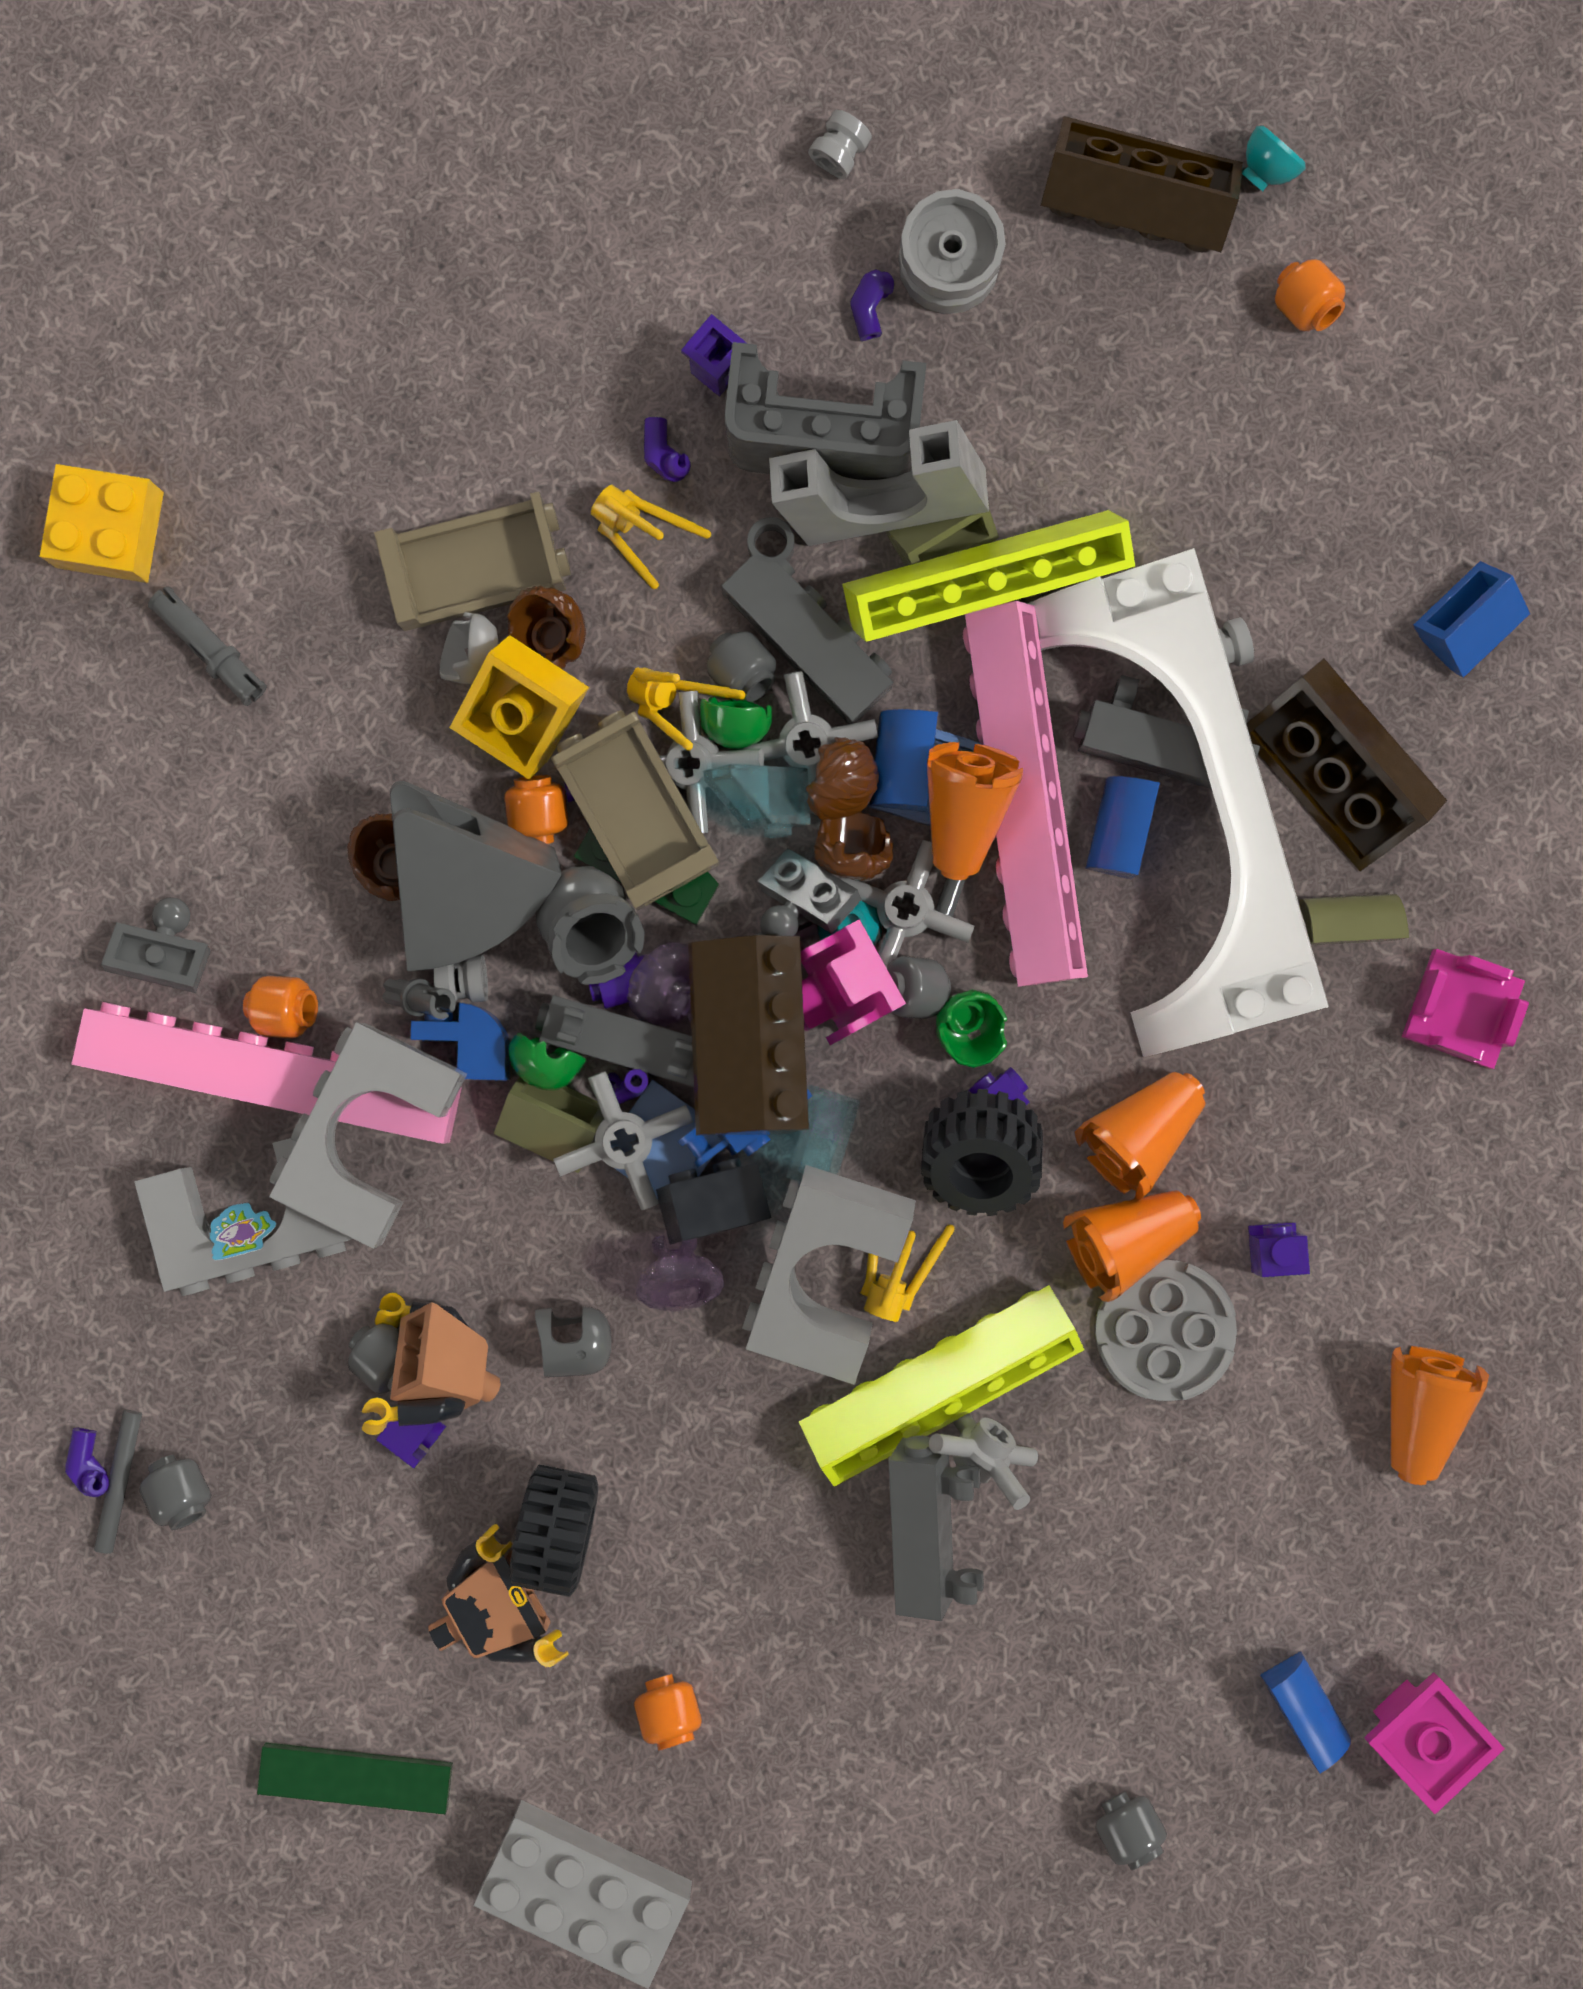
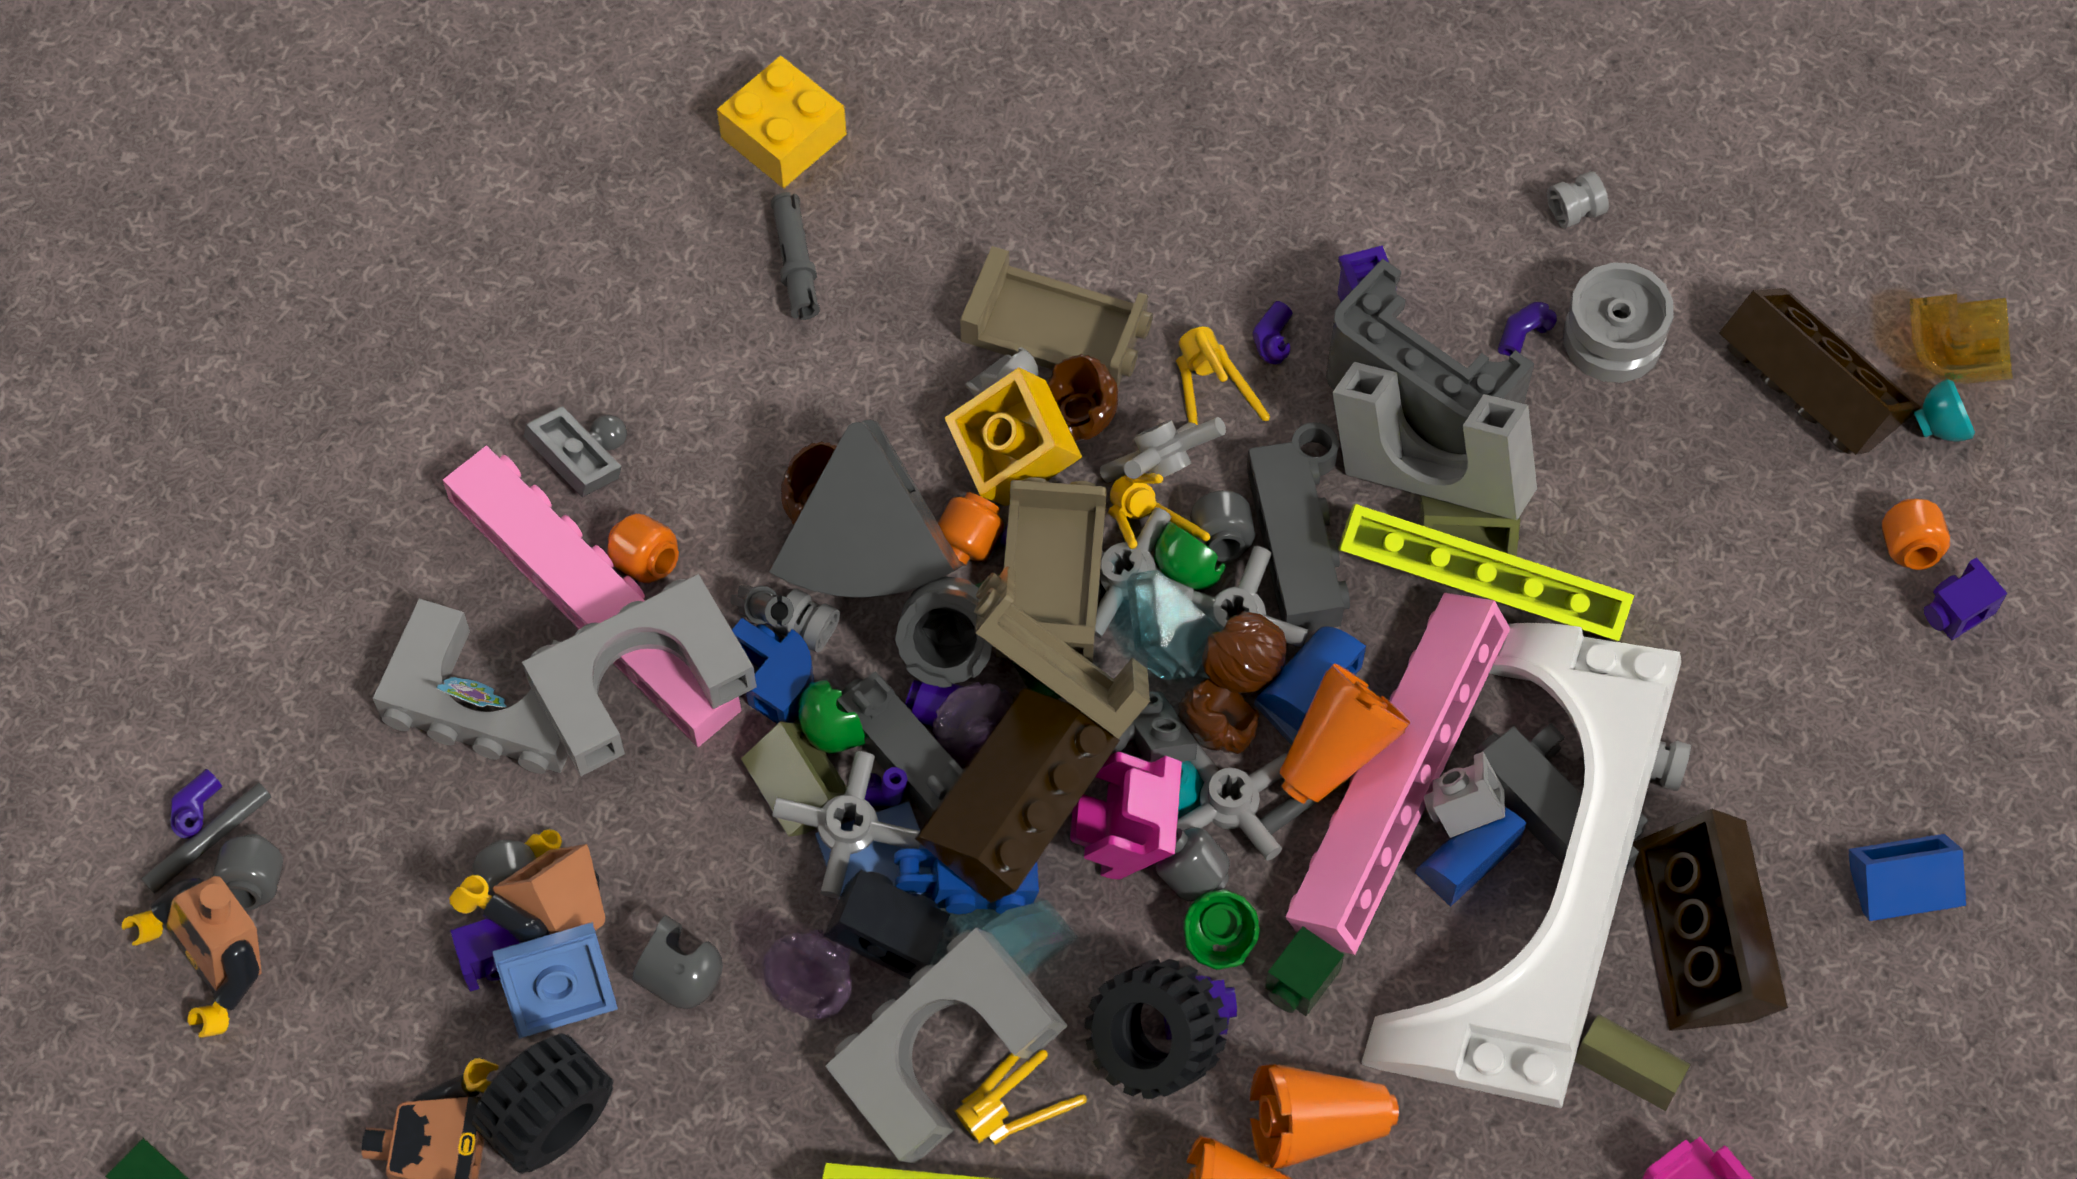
camera: 30 degrees right, 25 degrees down
(194, 1568) = (215, 939): none -> torso
(487, 1423) = (555, 980): none -> medium blue tile
(652, 636) = (1162, 449): none -> light grey bar
(708, 908) = (1057, 665): none -> dark tan panel
(1057, 1019) = (1303, 972): none -> dark green brick
(1097, 789) = (1466, 797): none -> light grey brick
(1249, 76) = (1962, 339): none -> clear yellow brick
(1384, 334) = (1964, 601): none -> dark purple brick

